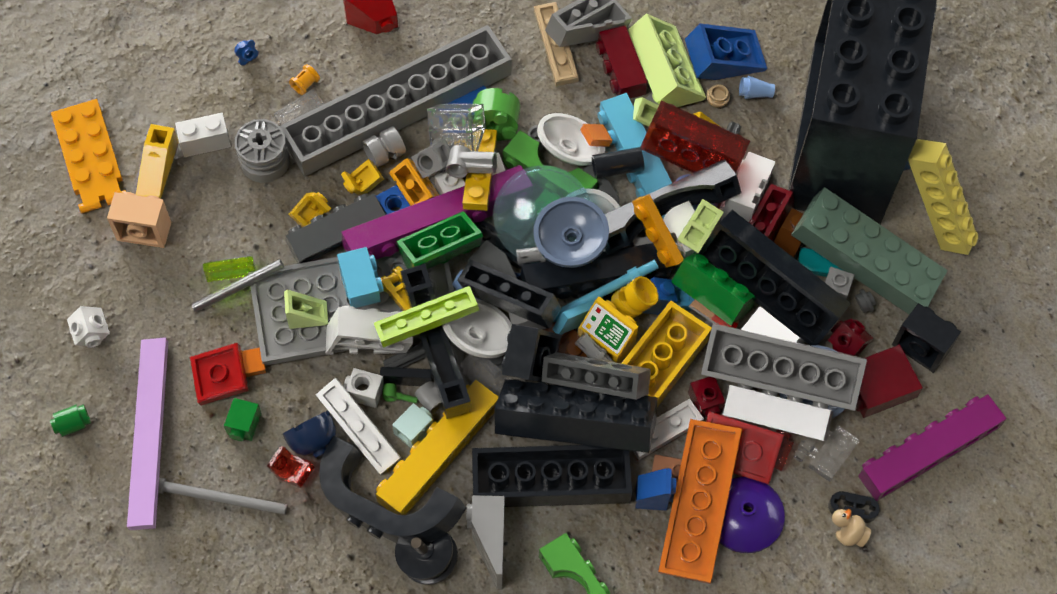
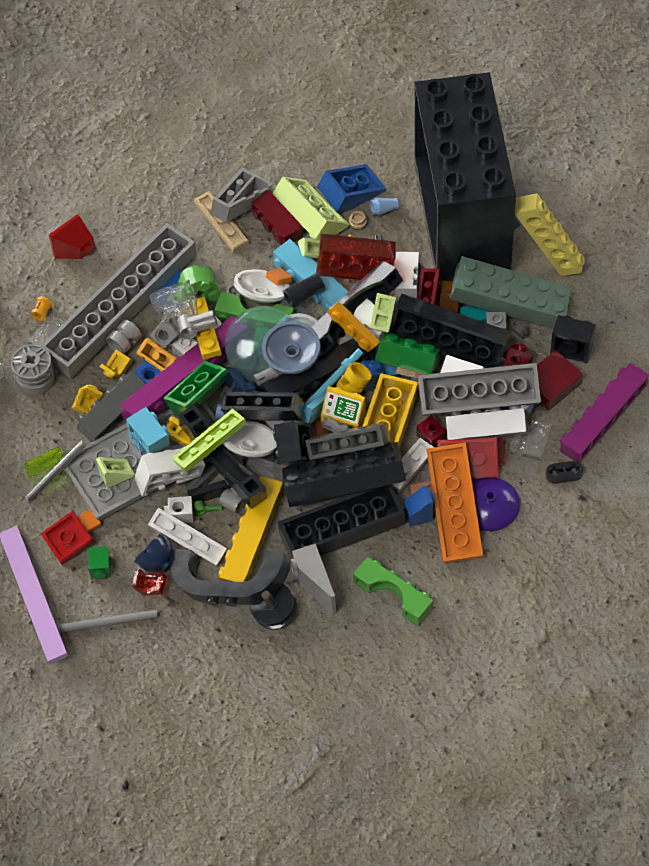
camera: 15 degrees left, 5 degrees down
(412, 425) = (226, 524): light aqua brick -> none
(497, 251) = (235, 374): none -> dark blue piece
(852, 528) = (569, 486): tan animal -> none

